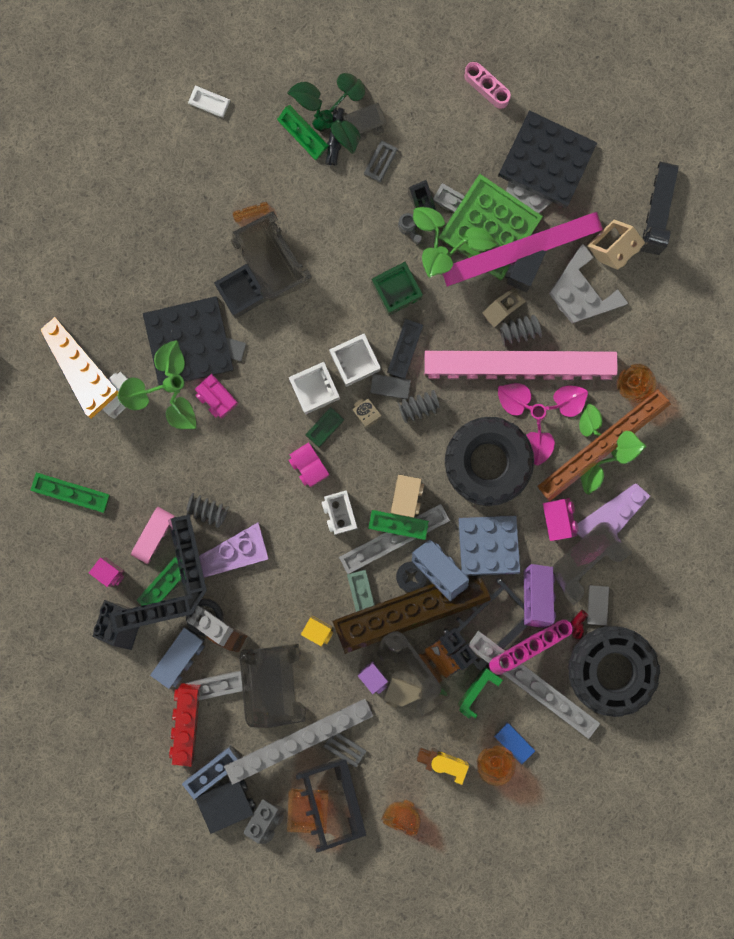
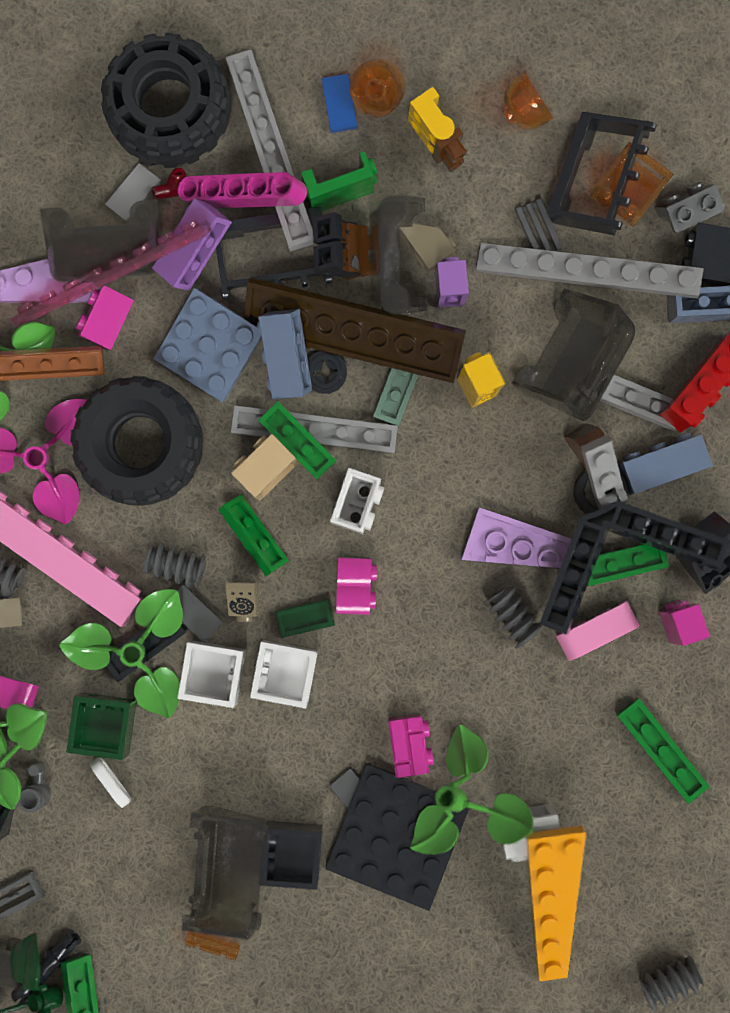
camera: 140 degrees left, 0 degrees up
(370, 261) = (110, 782): none -> white tile
(386, 454) = (253, 535): none -> green plate
(407, 373) = (157, 612): none -> bright green plant
(570, 548) = (119, 267): none -> clear pink plate

